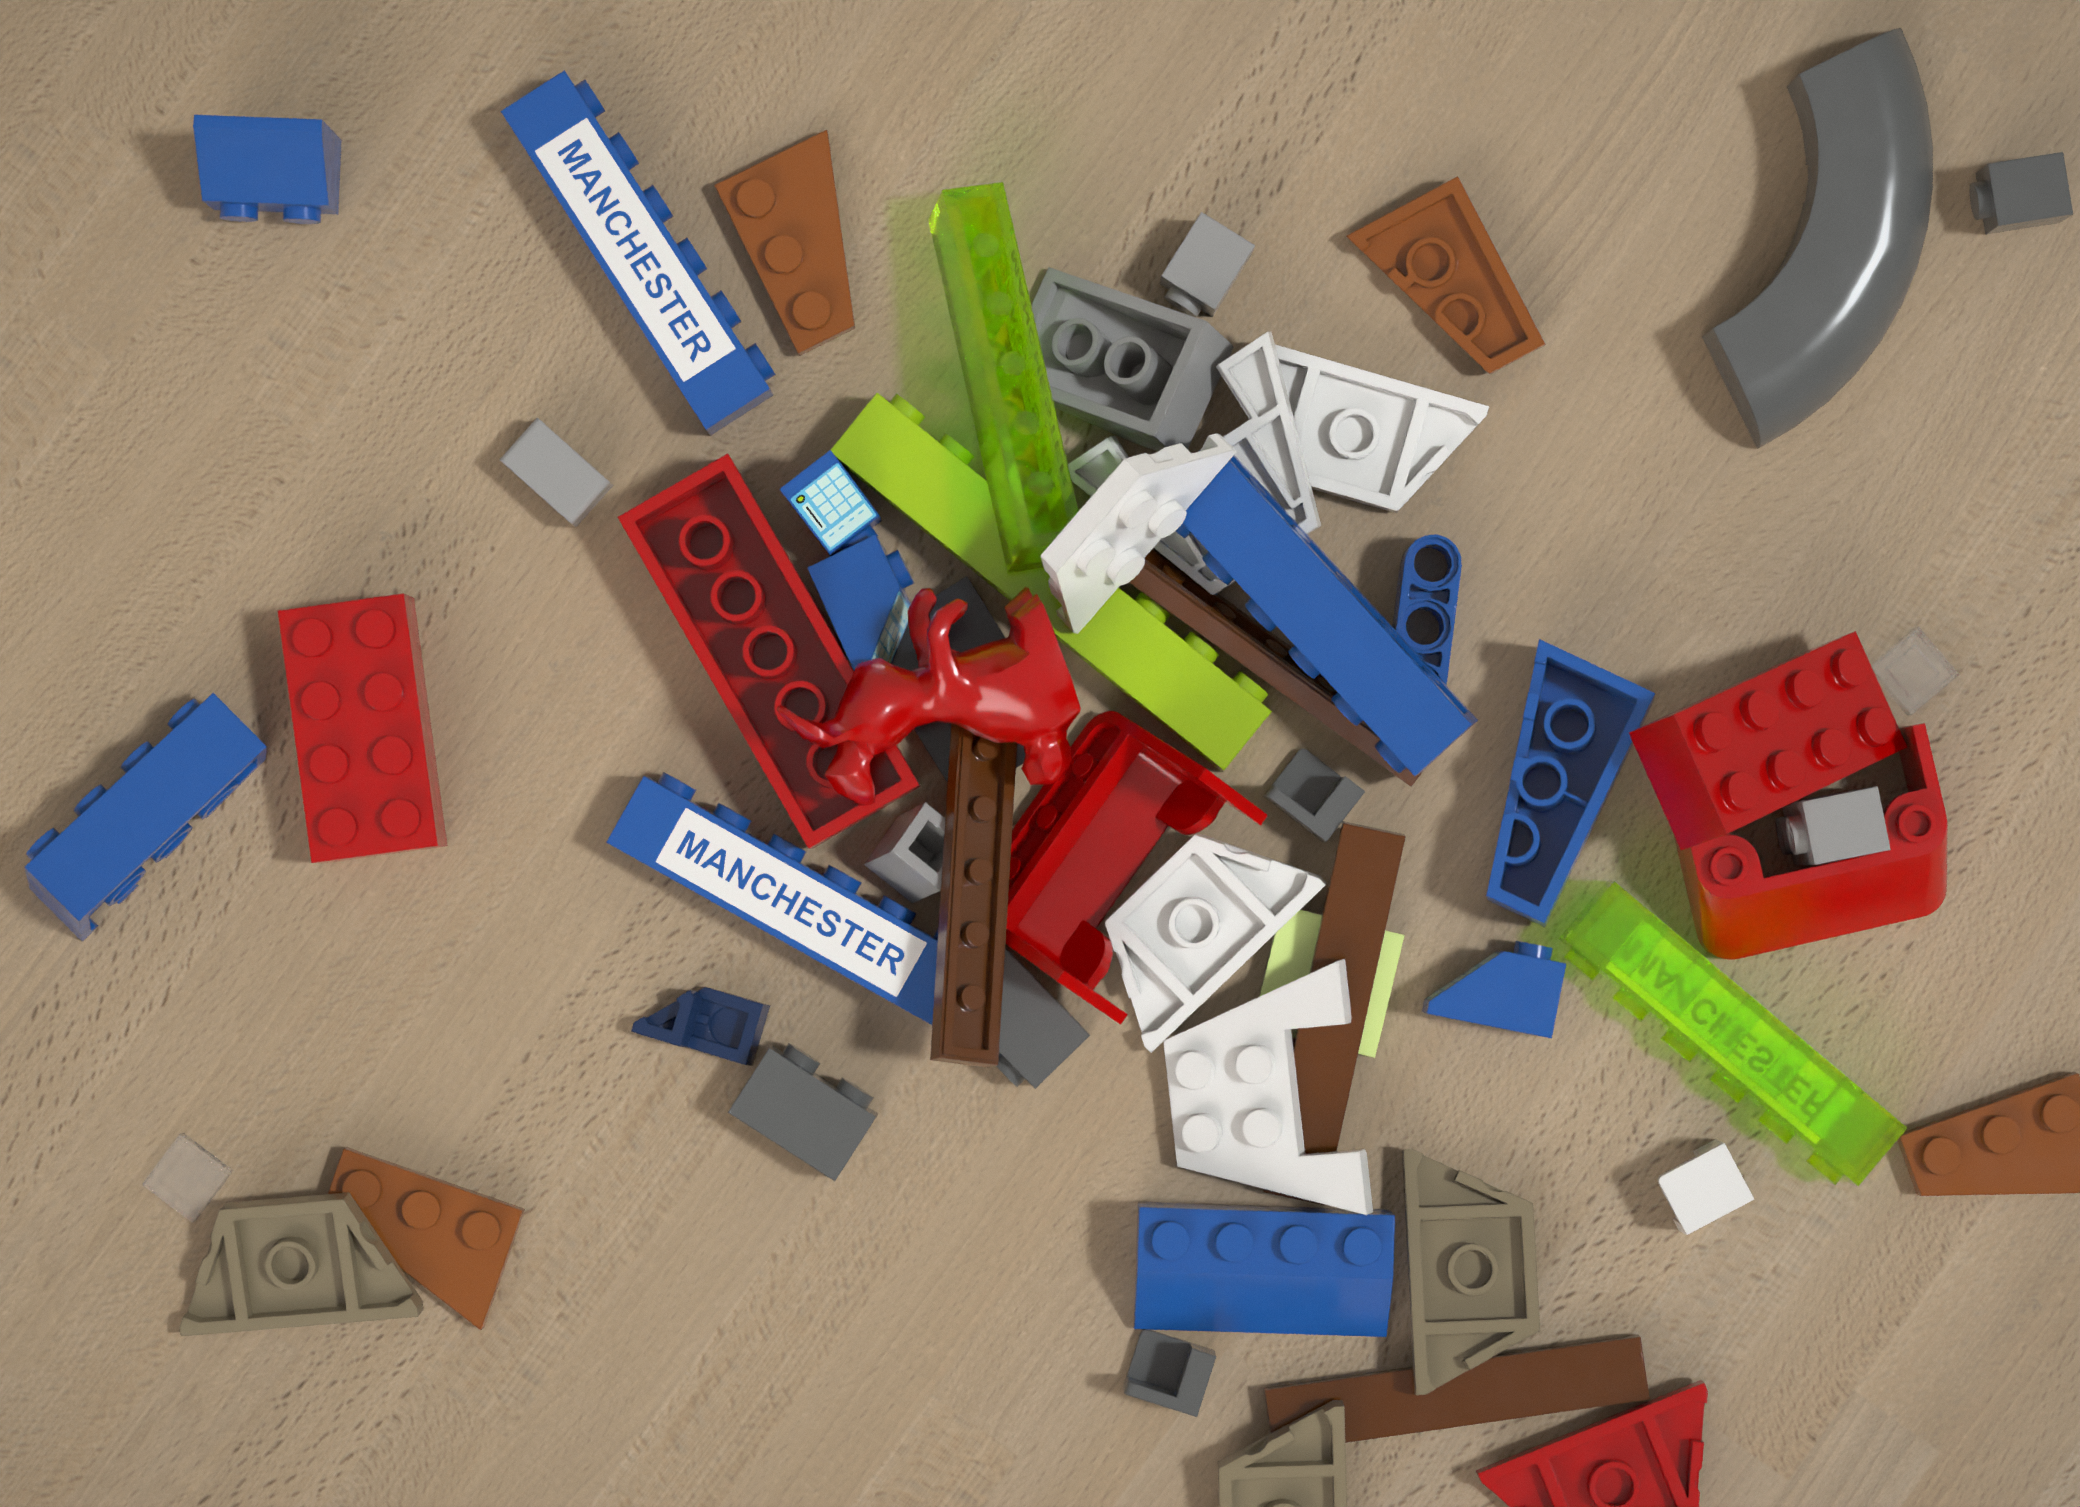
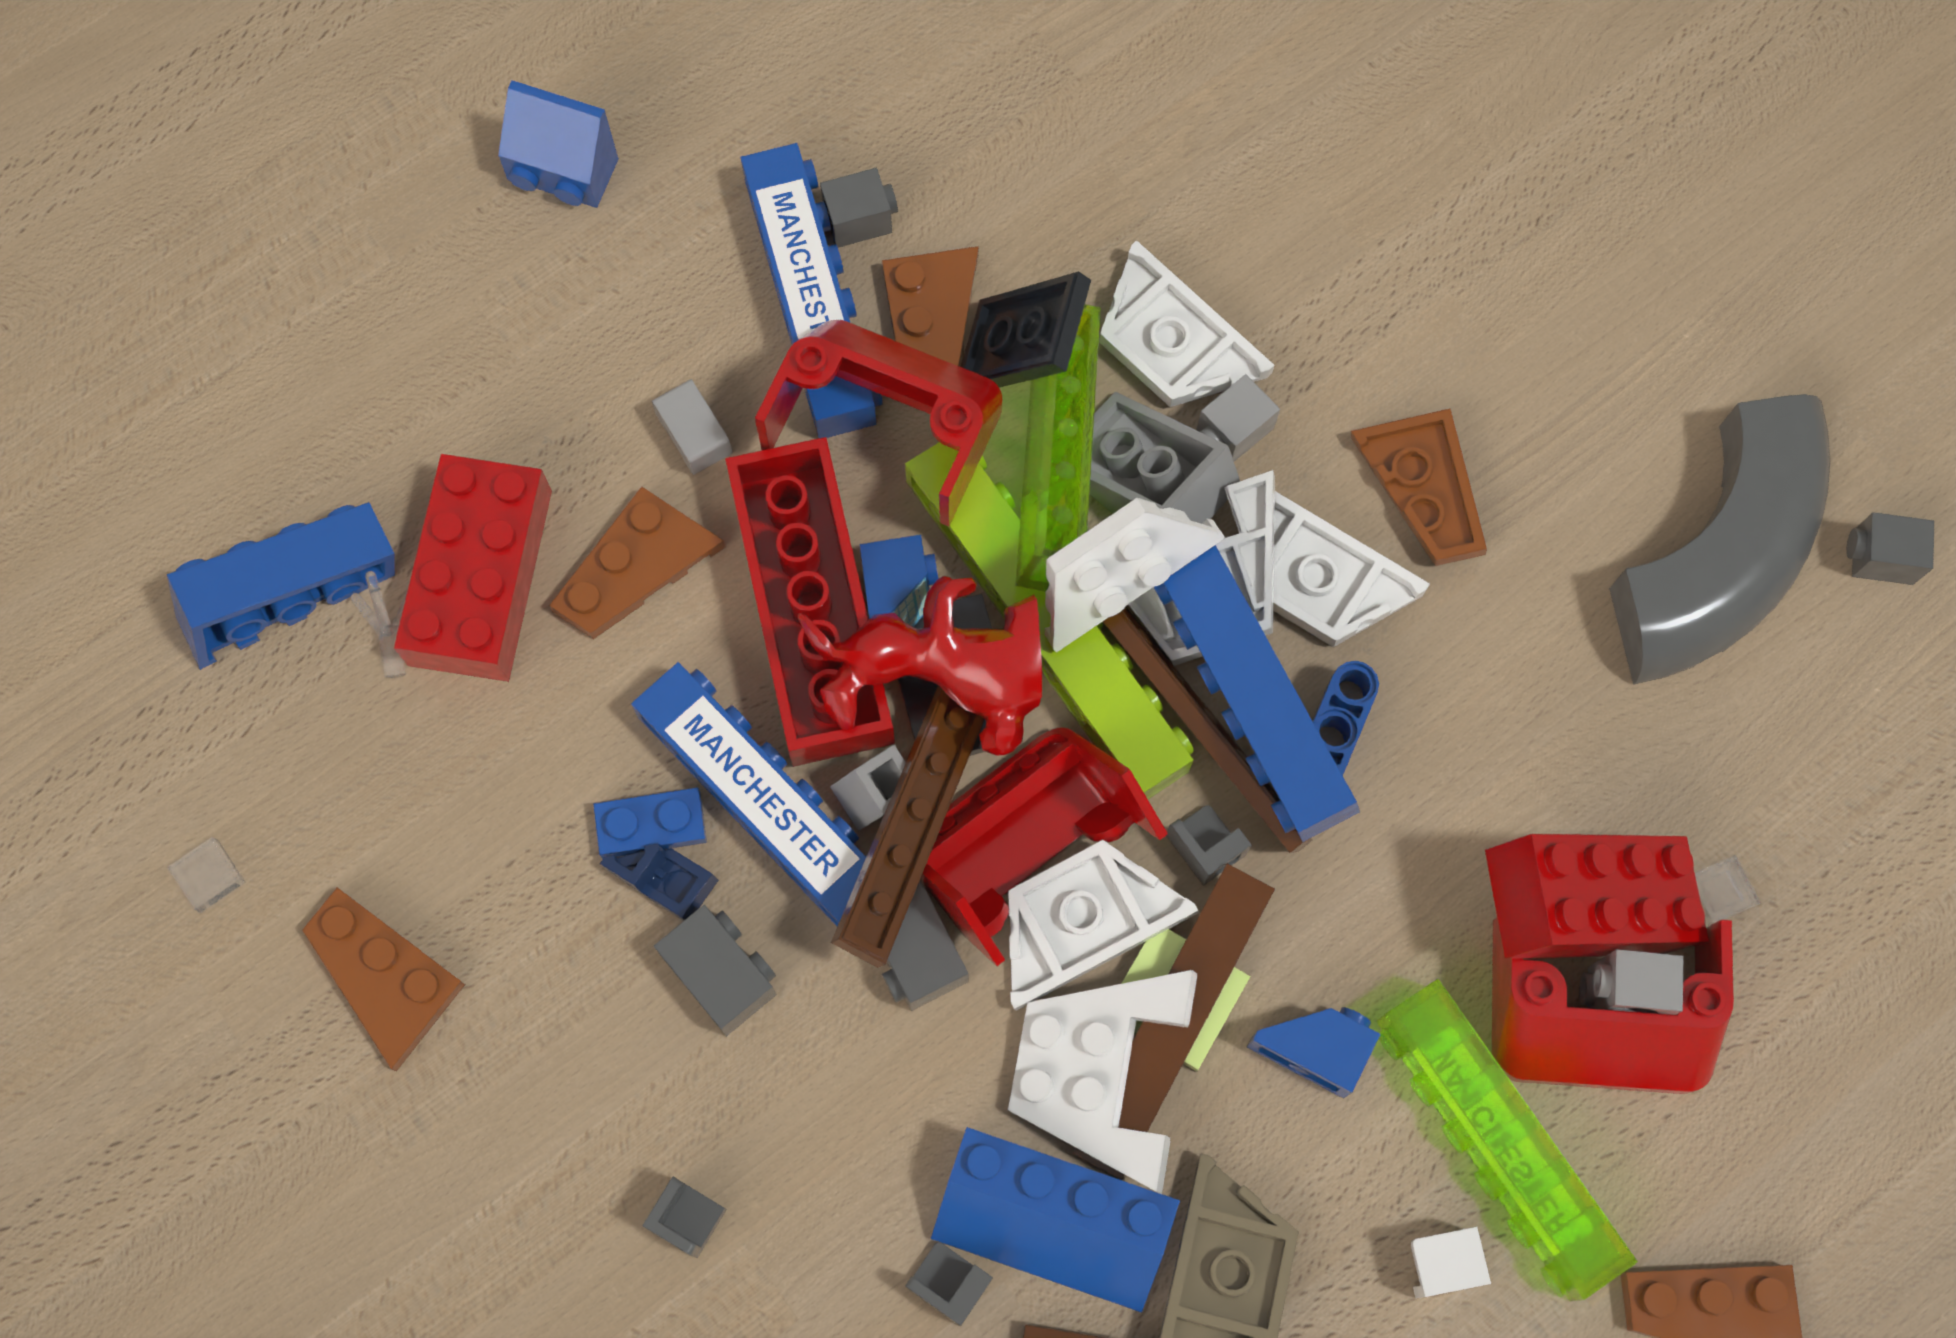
camera: 15 degrees right, 15 degrees down
(288, 835) = (387, 632): none -> clear plant
(296, 1268) = (261, 969): dark tan wing -> none
(543, 659) = (631, 562): none -> dark orange wing
(664, 124) = (858, 207): none -> dark grey brick
(670, 964) = (662, 818): none -> blue plate
(831, 504) = (892, 497): slope -> none
(861, 1391) = (684, 1217): none -> dark grey panel
(871, 353) = (959, 402): none -> red windscreen
(920, 247) = (1027, 330): none -> black tile
(1099, 176) = (1174, 336): none -> white wing
(1561, 776) = (1414, 884): blue wedge -> none

